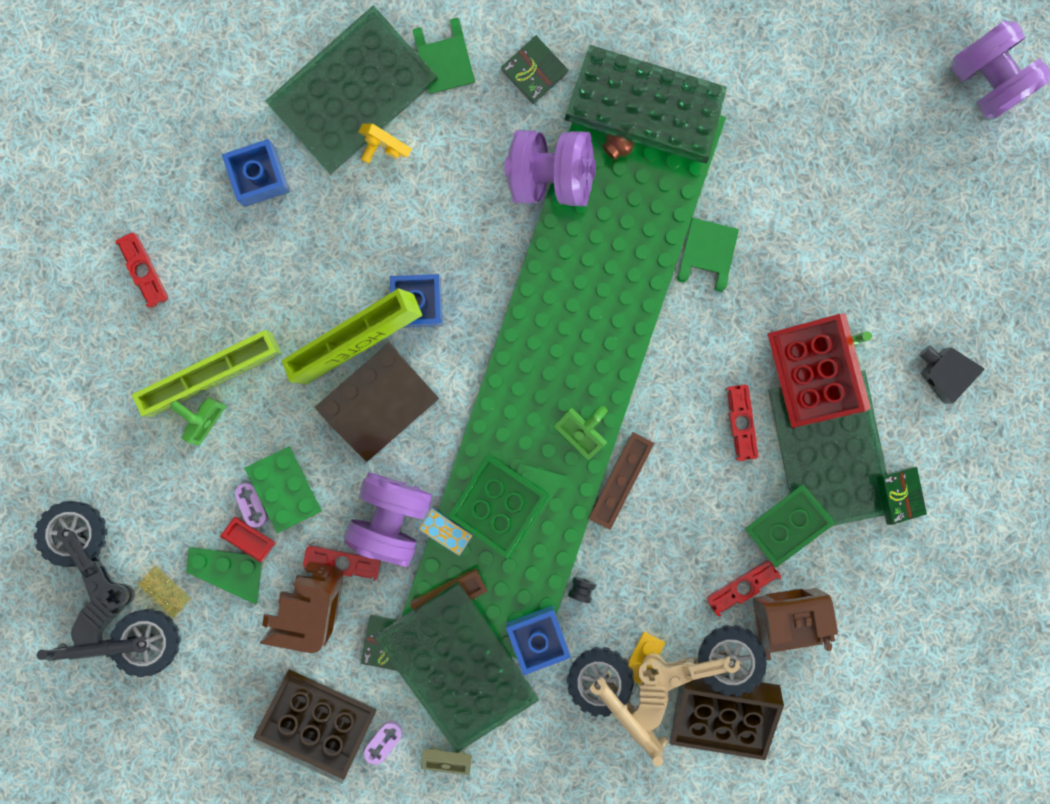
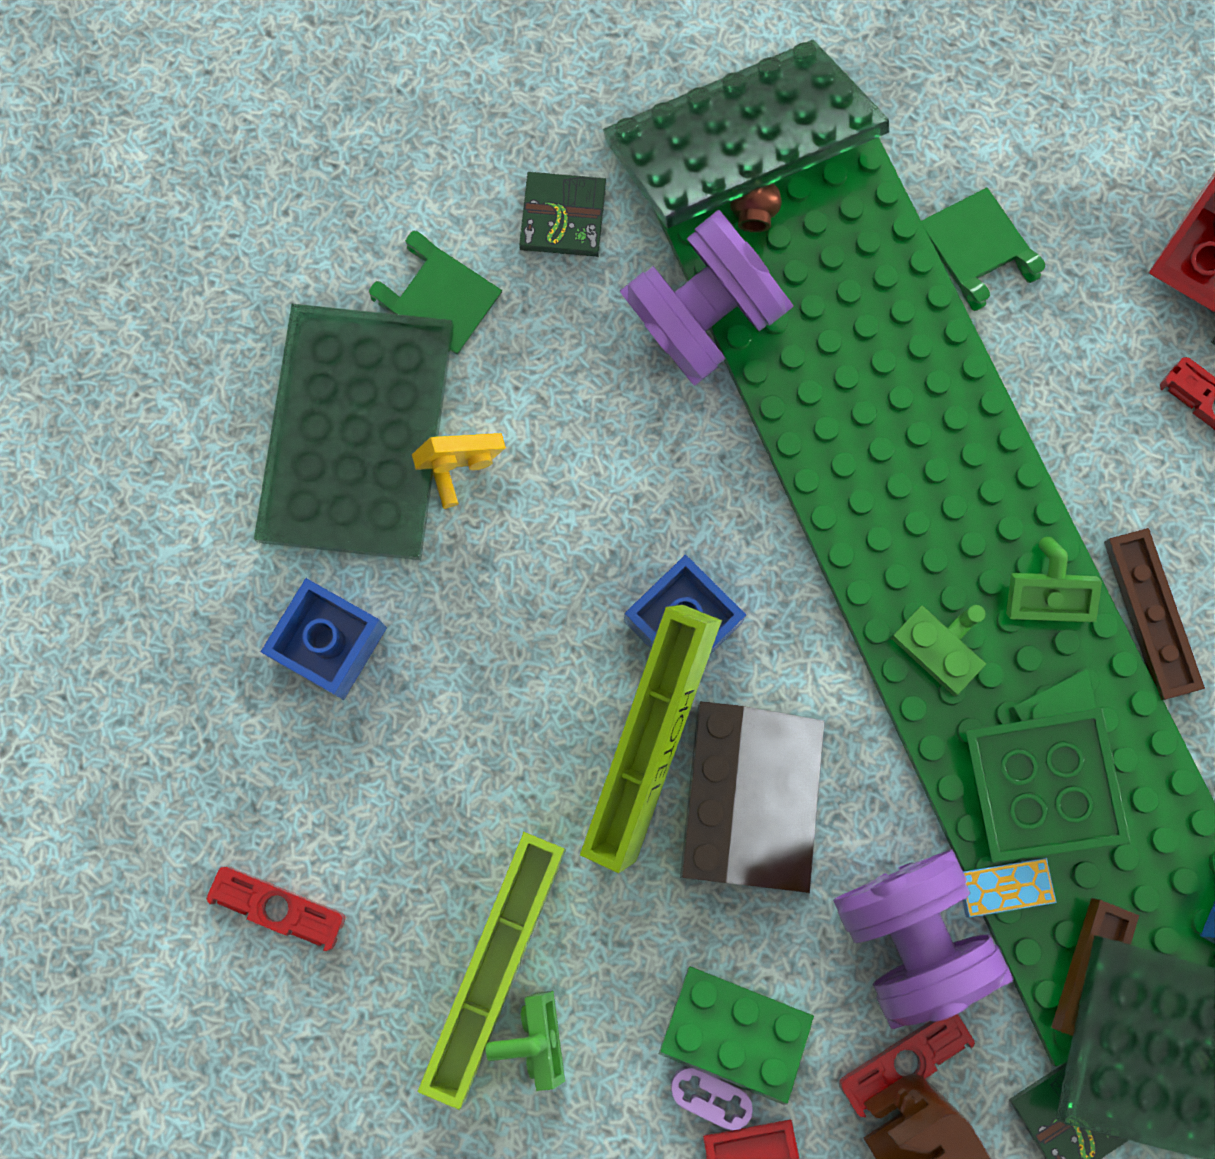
camera: 40 degrees left, 10 degrees down
(512, 411) = (941, 648): none -> bright green plate

